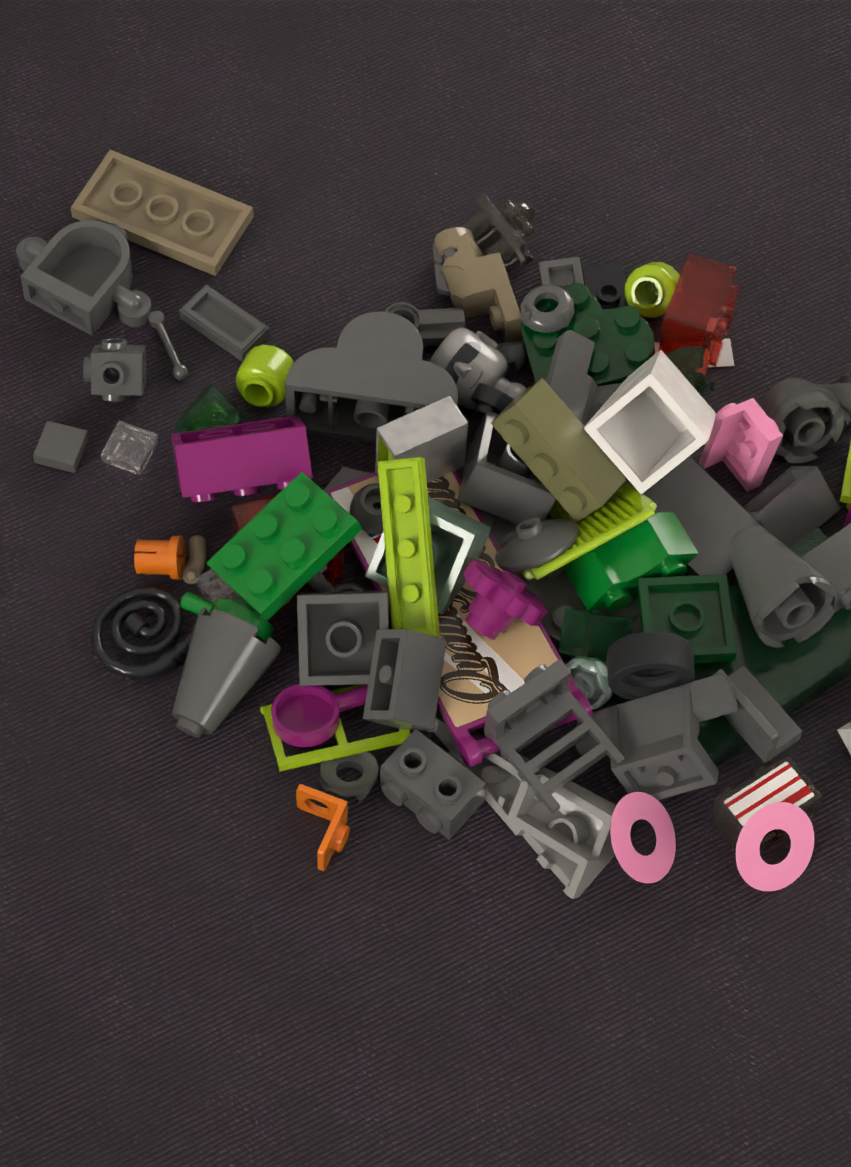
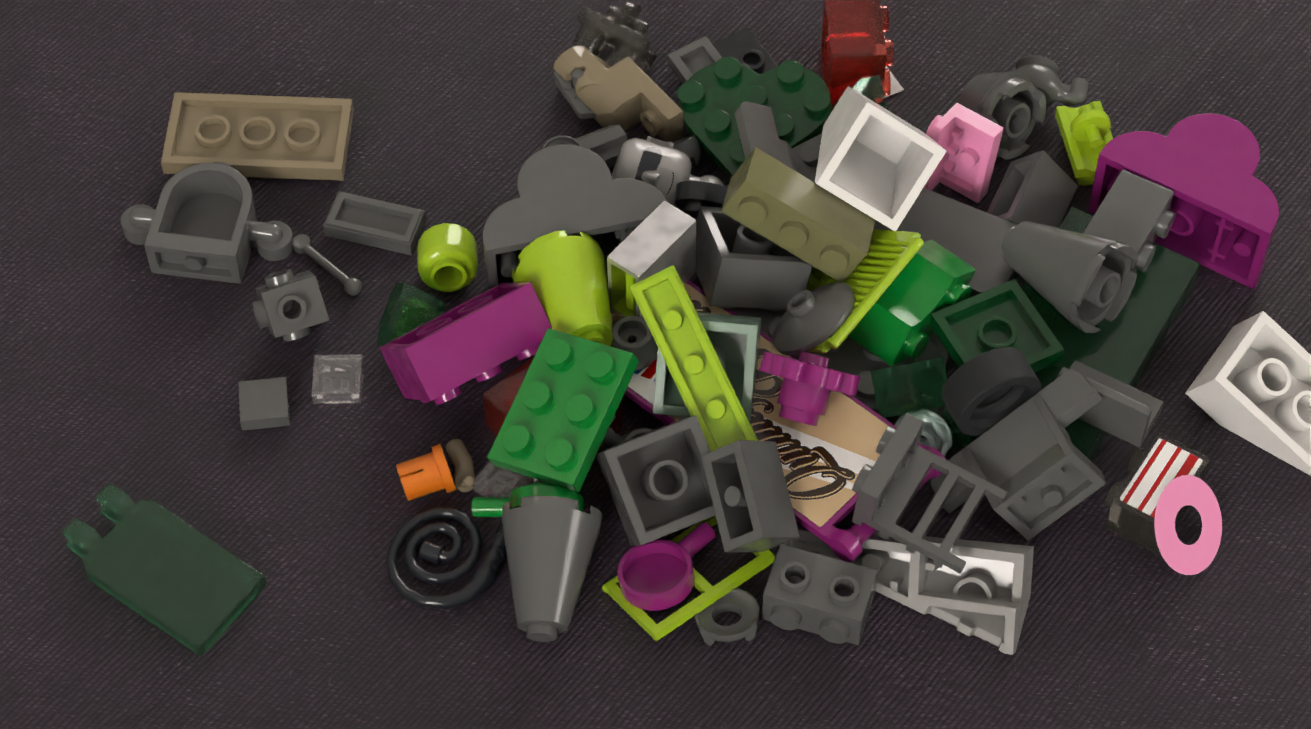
camera: 20 degrees left, 5 degrees down
(336, 812) = (735, 662): orange bracket -> none
(342, 442) = (569, 283): none -> lime cone
(547, 321) = (710, 104): dark grey piece -> none
(639, 867) = (1070, 595): bright pink piece -> none
(640, 290) = (781, 51): lime head -> none

